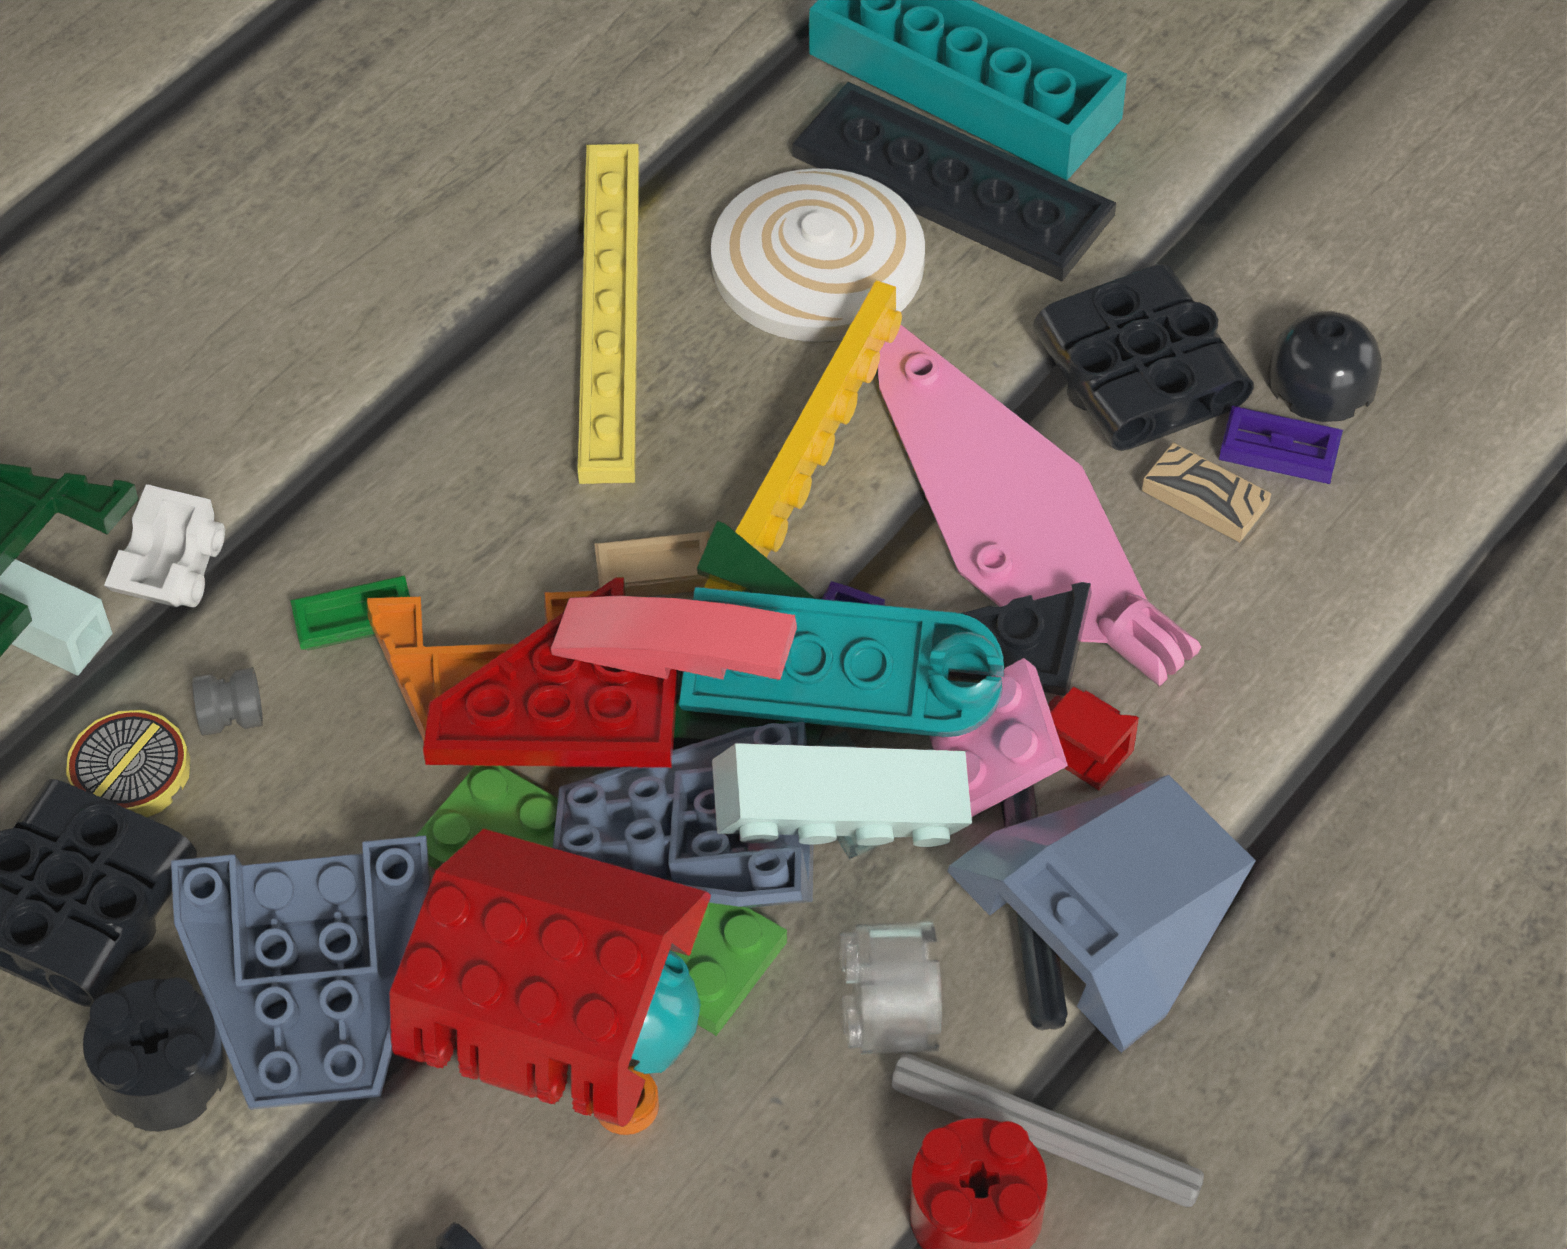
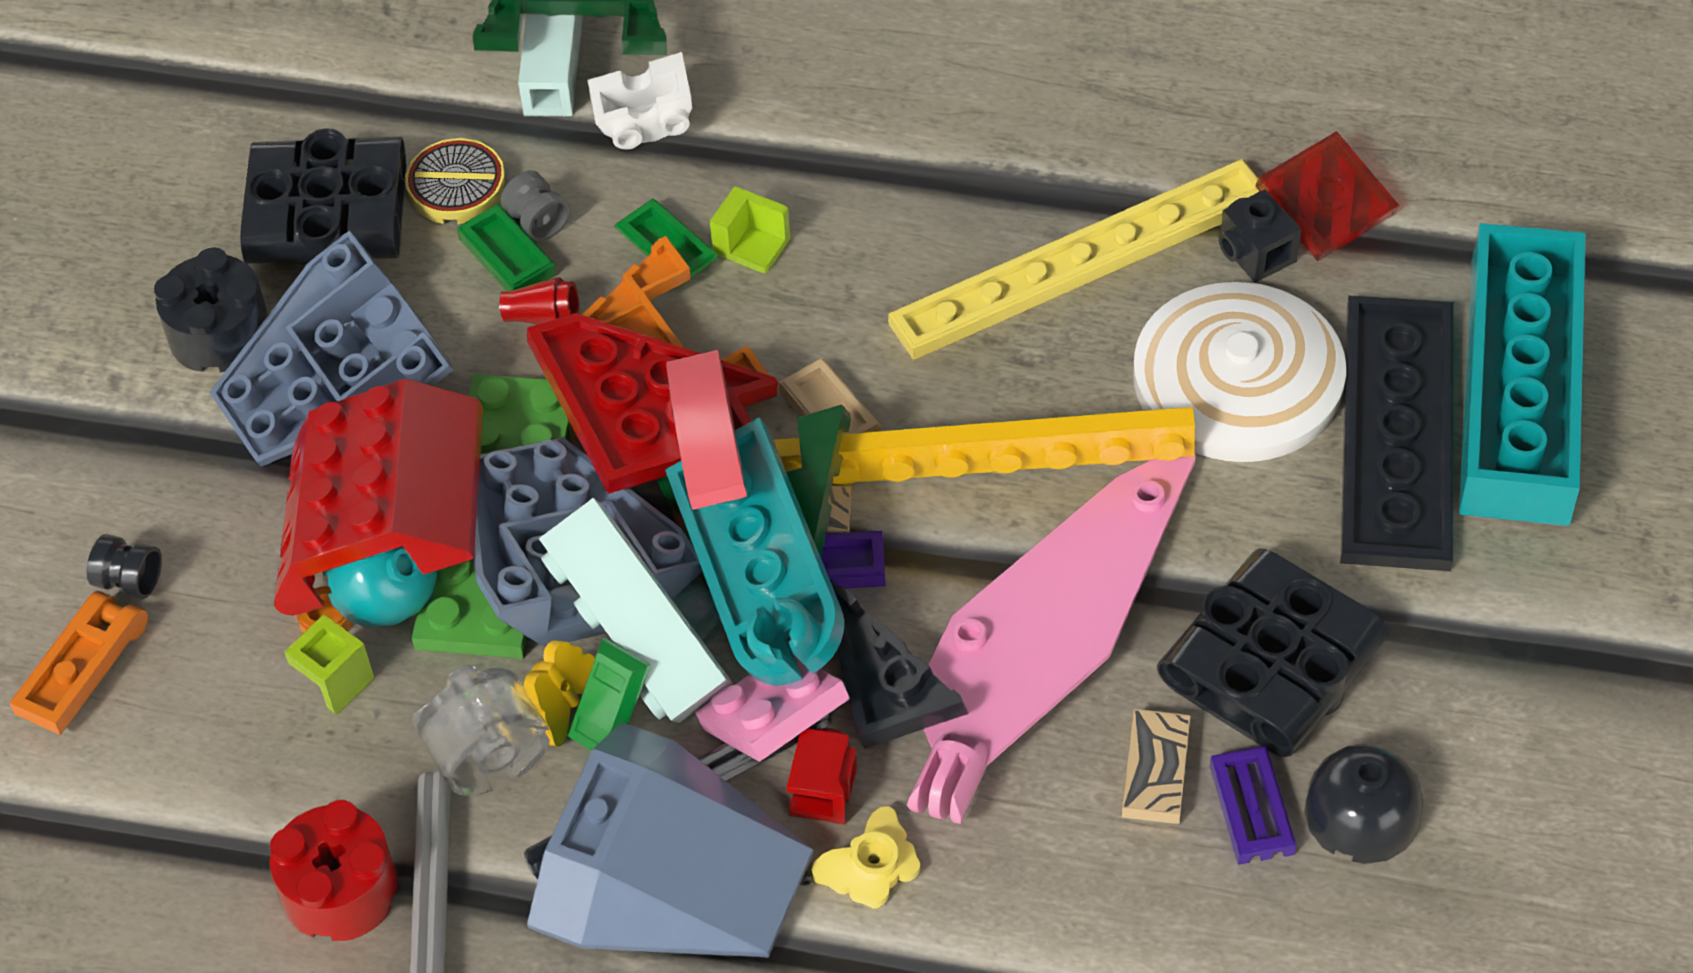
camera: 65 degrees right, 0 degrees up
(257, 756) = (506, 249): none -> green tile
(361, 745) = (540, 302): none -> red cone
(395, 535) = (750, 229): none -> lime panel
(673, 108) = (1329, 195): none -> clear red tile
(686, 169) = (1259, 235): none -> black brick
(712, 1099) = (332, 661): none -> lime panel
(852, 901) = (556, 685): none -> yellow animal
(913, 865) = (608, 694): none -> green tile
(1194, 739) = (850, 868): none -> light yellow animal

